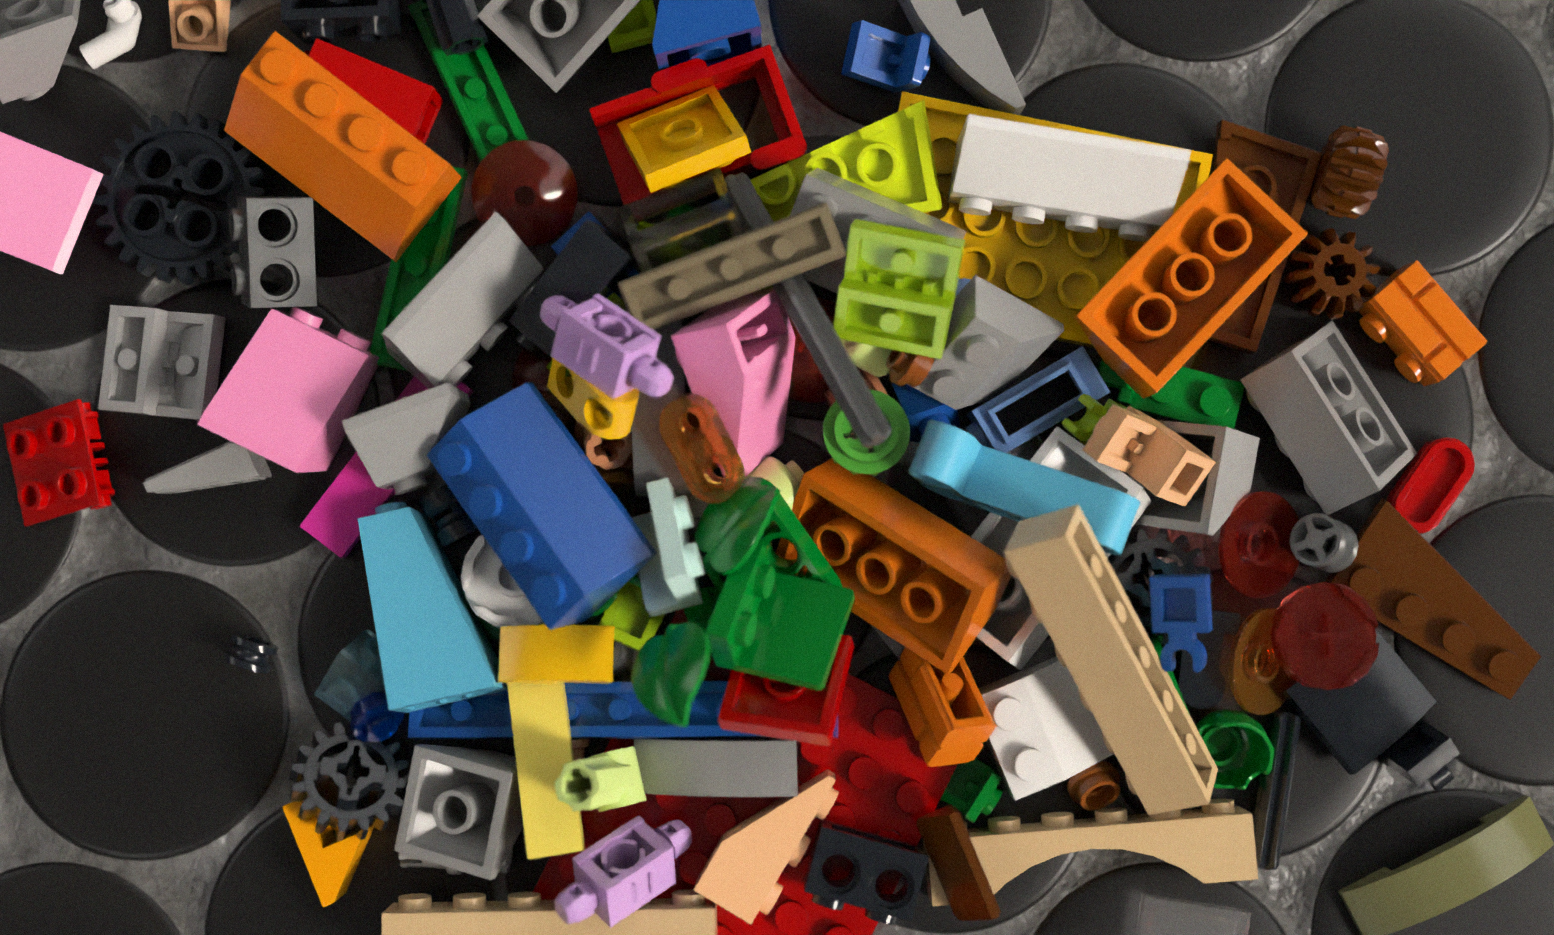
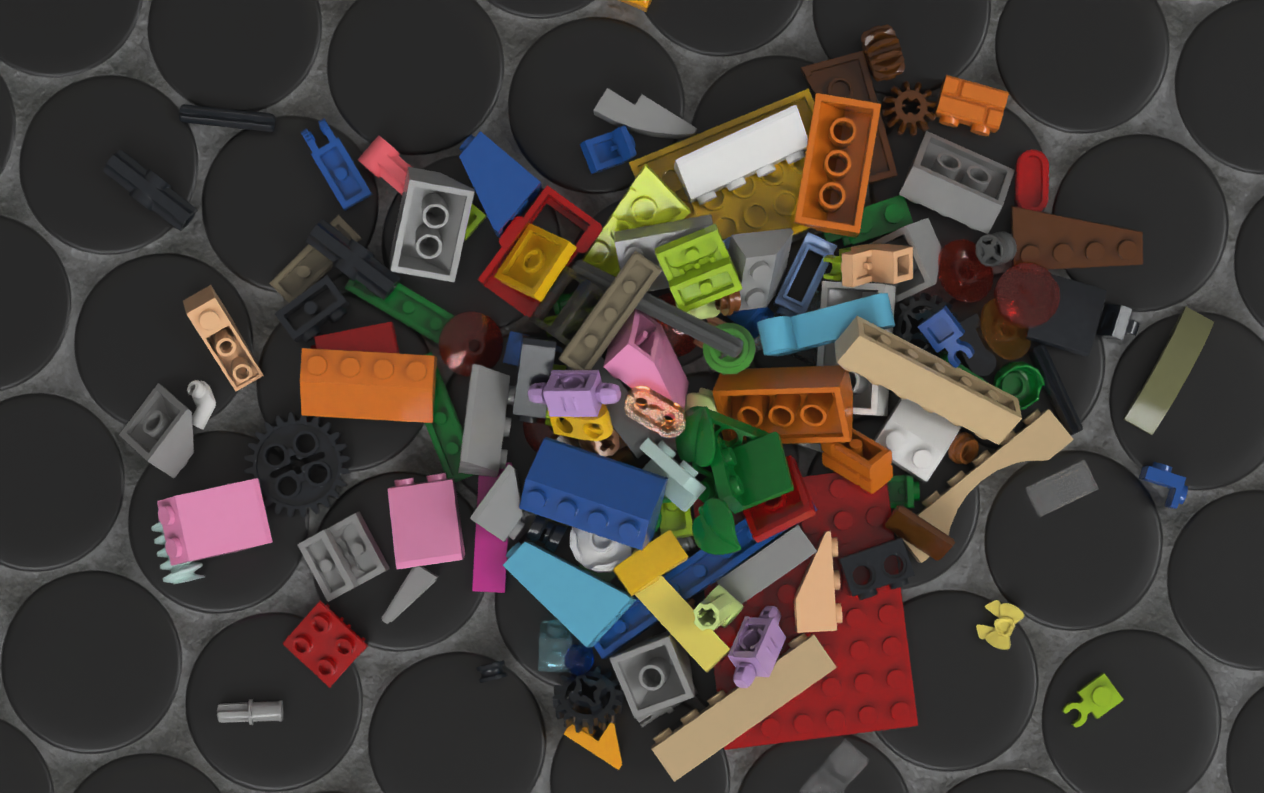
camera: 40 degrees left, 0 degrees up
(290, 249) = (374, 452): dark grey brick -> none

